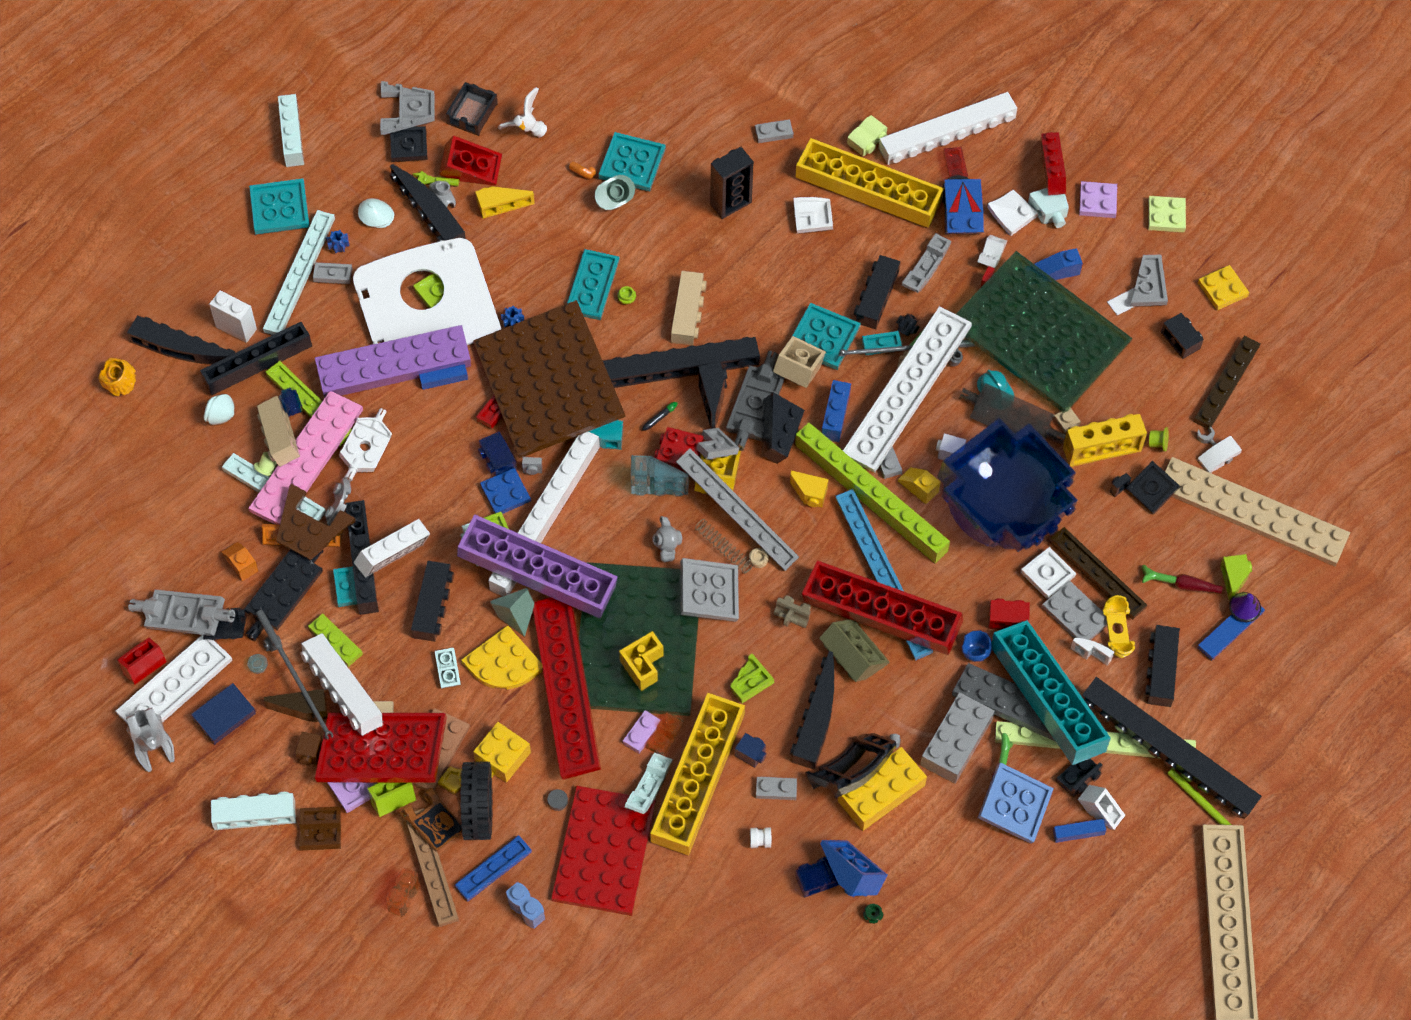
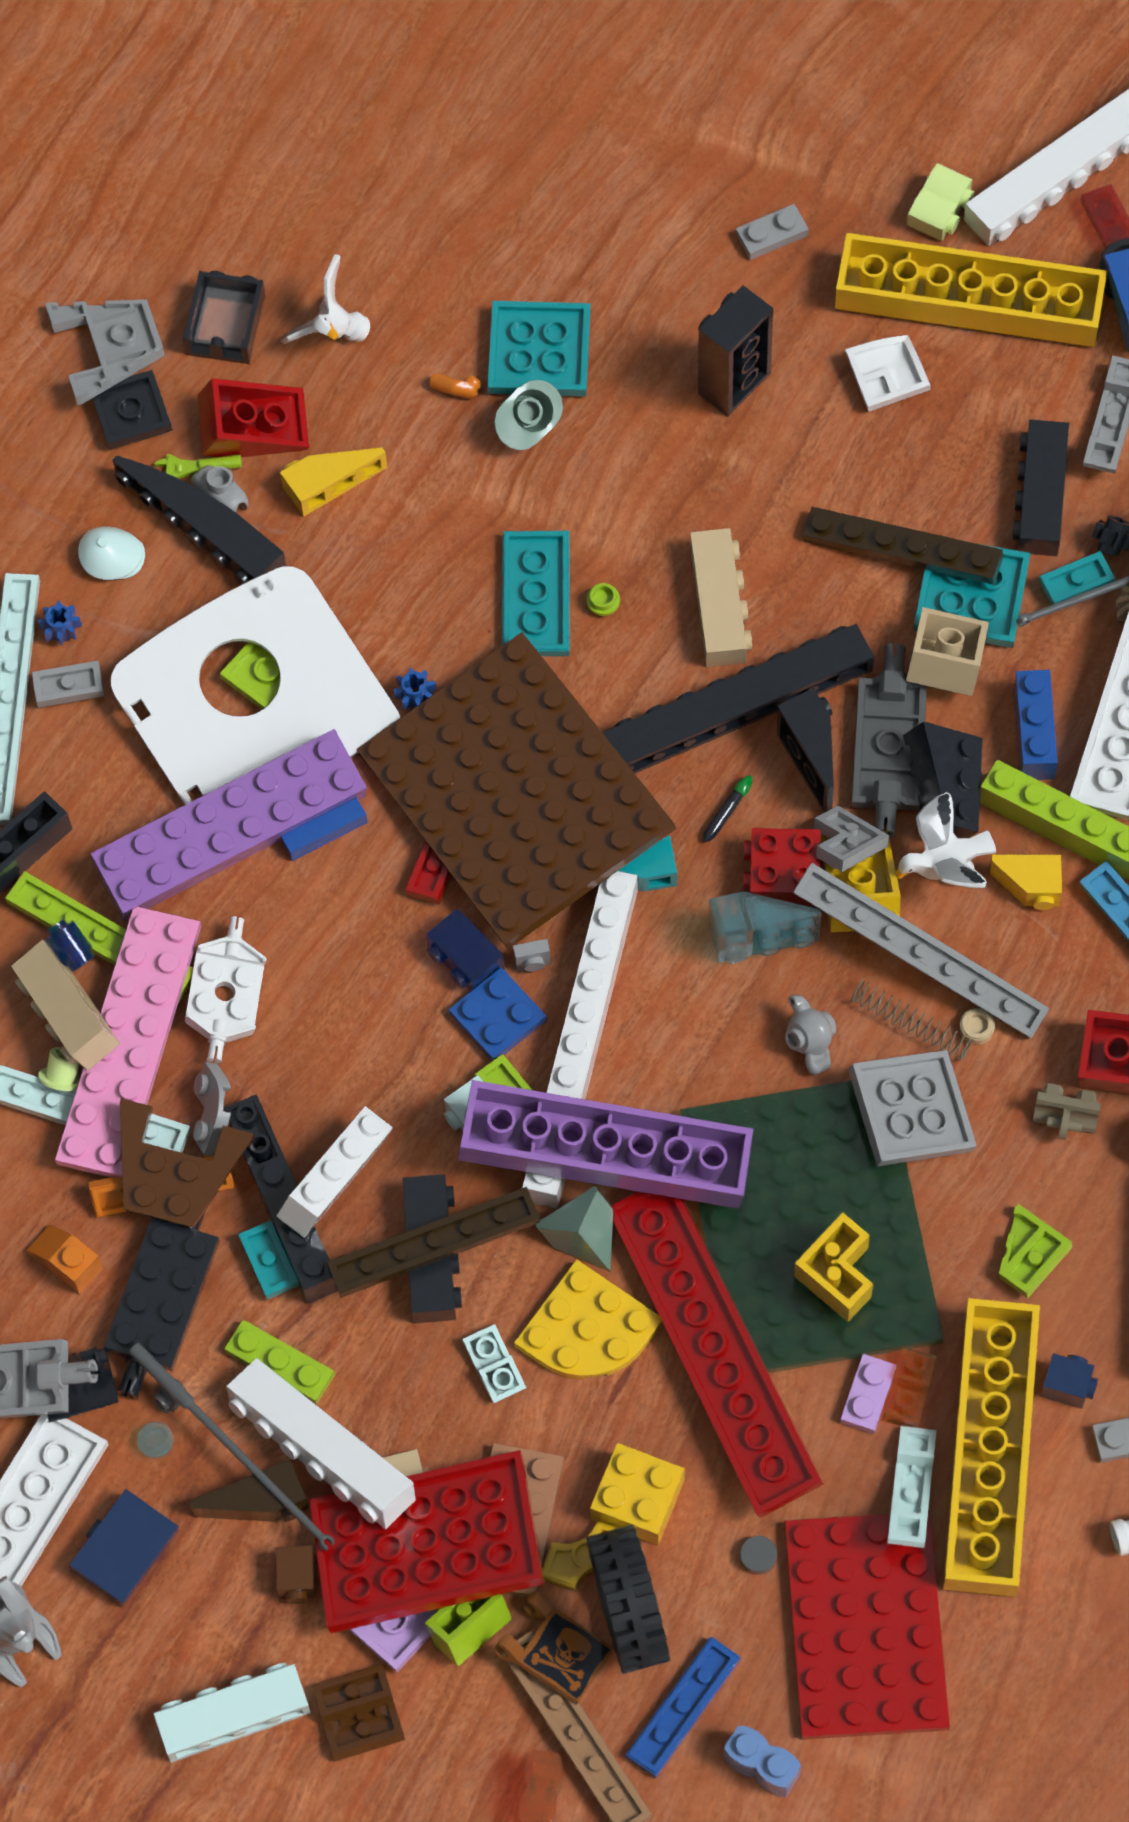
camera: 10 degrees left, 5 degrees up
(432, 595) = (433, 1242): none -> dark brown plate
(765, 463) = (944, 853): none -> animal
(793, 303) = (902, 545): none -> dark brown plate

